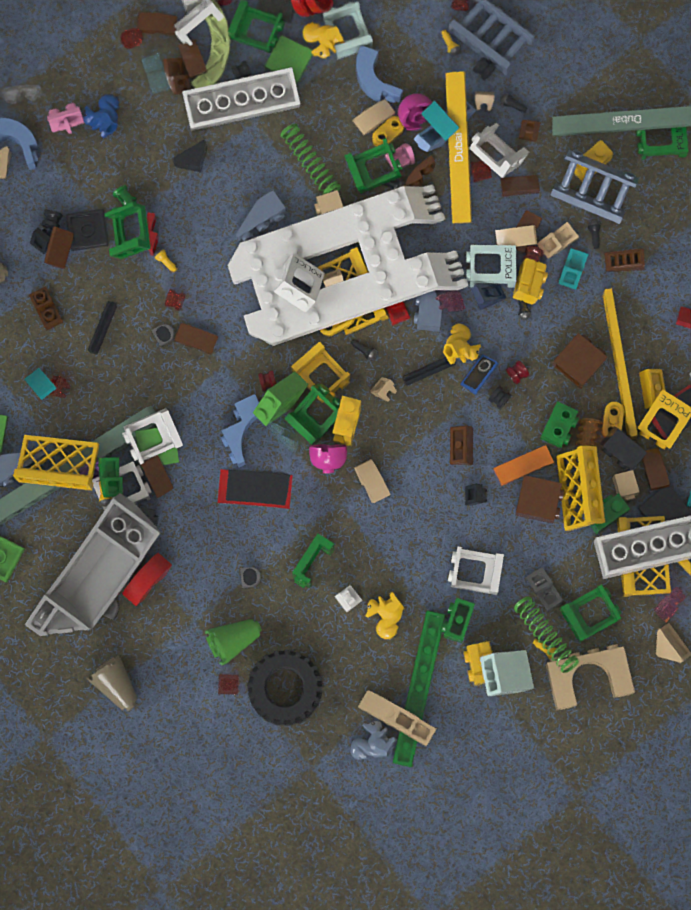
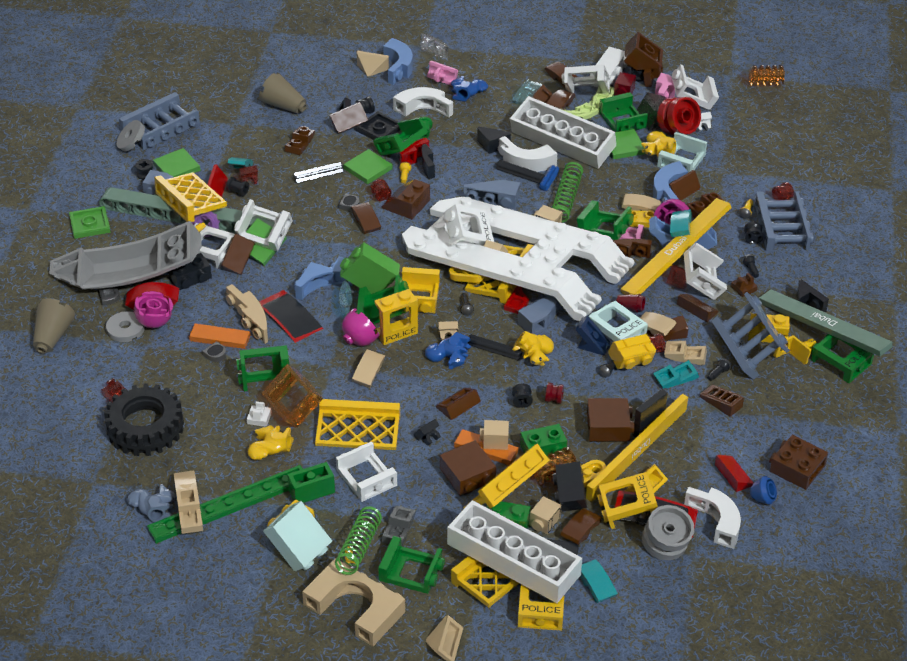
camera: 45 degrees right, 35 degrees down
(44, 420) = (217, 180): none -> red slope
(64, 407) = (237, 186): none -> black bush
(85, 164) = (421, 98): none -> white arch
(109, 476) = (210, 223): green slope -> none
(127, 38) = (536, 67): clear red wheel -> none
(130, 282) = (368, 166): none -> bright green tile
(146, 622) = (119, 334): none -> light grey tile
(168, 229) = (427, 162): none -> black slope
(170, 592) = (153, 309): none -> dark pink cylinder
(203, 289) = (409, 199): none -> reddish brown slope
(232, 638) = (152, 365): bright green cone -> none
(234, 560) = (225, 336): none -> orange tile
(240, 520) = (250, 310): none -> tan slope
(241, 156) = (535, 159): none -> white arch
(249, 170) = (519, 171): none -> black axle
(277, 155) = (549, 177): none -> blue axle
(361, 579) = (275, 392): none -> clear orange window
(386, 64) = (685, 185): none -> reddish brown slope
(402, 404) = (452, 347): none -> blue animal
(412, 526) = (358, 409): none -> yellow fence
(418, 70) = (705, 200): none -> reddish brown slope
(452, 301) = (561, 321): clear pink plate -> none
(474, 229) = (633, 302): none -> dark red cone
(479, 374) = (529, 377): slope -> none
(484, 97) = (732, 245): tan tile -> none
(527, 454) = (495, 434): none -> tan brick
(582, 99) = (811, 297): none -> black slope
(604, 329) = (649, 411): none -> black tile
(630, 159) = (798, 349): none -> yellow bracket
(668, 606) = (473, 612): clear pink plate -> none

